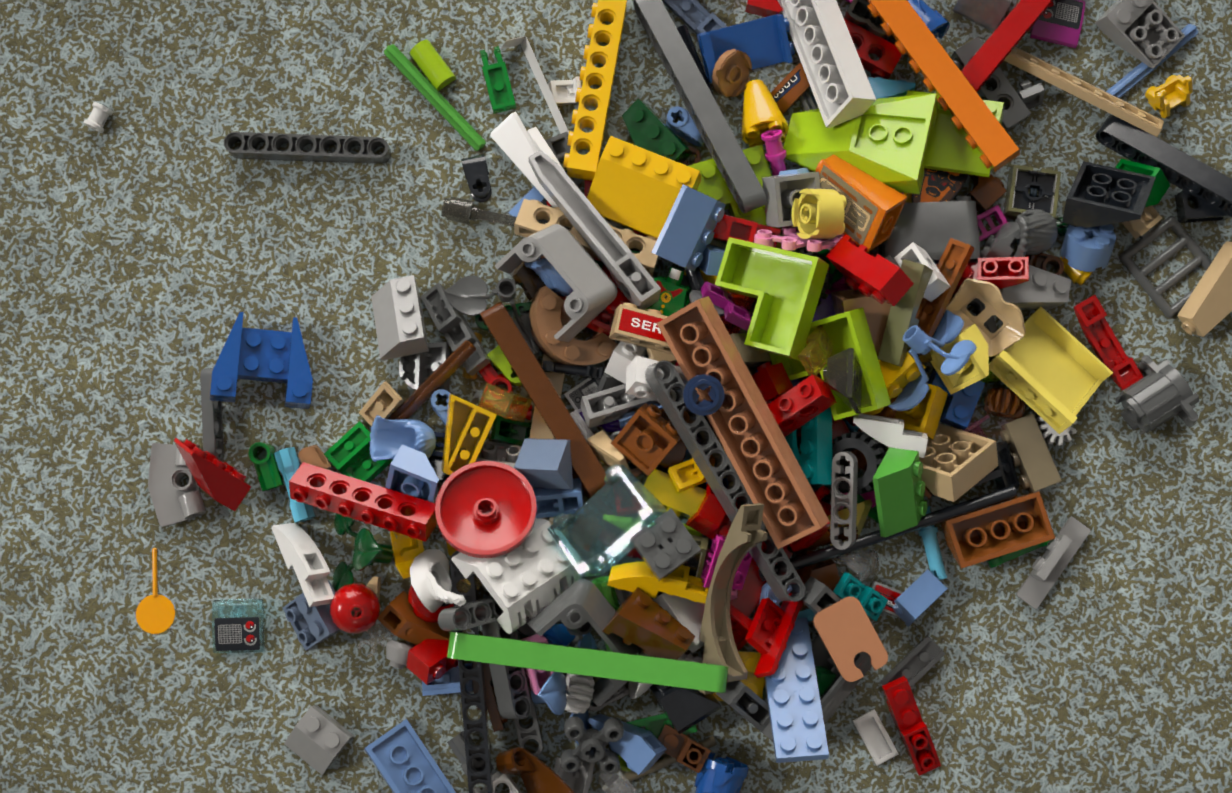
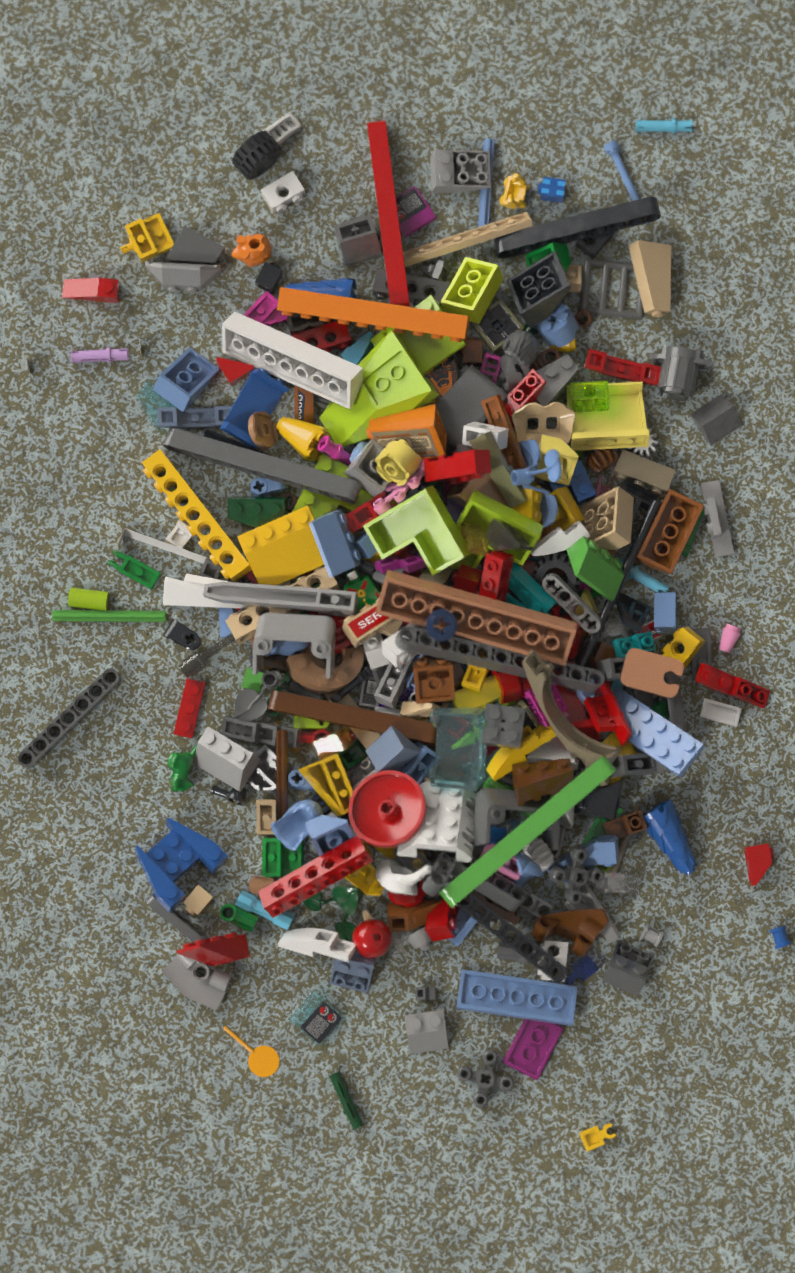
camera: 45 degrees left, 0 degrees up
(174, 752) = (355, 1122): none -> dark green pin
(247, 415) = (197, 900): none -> tan brick
(353, 705) = (424, 993): none -> dark grey piece
(357, 285) = (180, 765): none -> green animal
(373, 356) = (233, 794): none -> black bar
(417, 245) = (189, 708): none -> red plate
(493, 276) = (252, 681): none -> bright green slope
(889, 565) = (632, 612): none -> black wing
(915, 647) = (691, 641): none -> yellow brick
(953, 679) = (729, 637): none -> bright pink cone
(1047, 137) = (472, 289): none -> neon yellow brick
(1051, 336) = (589, 396): none -> clear neon green brick
(1117, 271) = (587, 313): none -> reddish brown bush
(1145, 475) = (716, 419): none -> flat silver slope
(1206, 125) = (551, 189): none -> blue brick

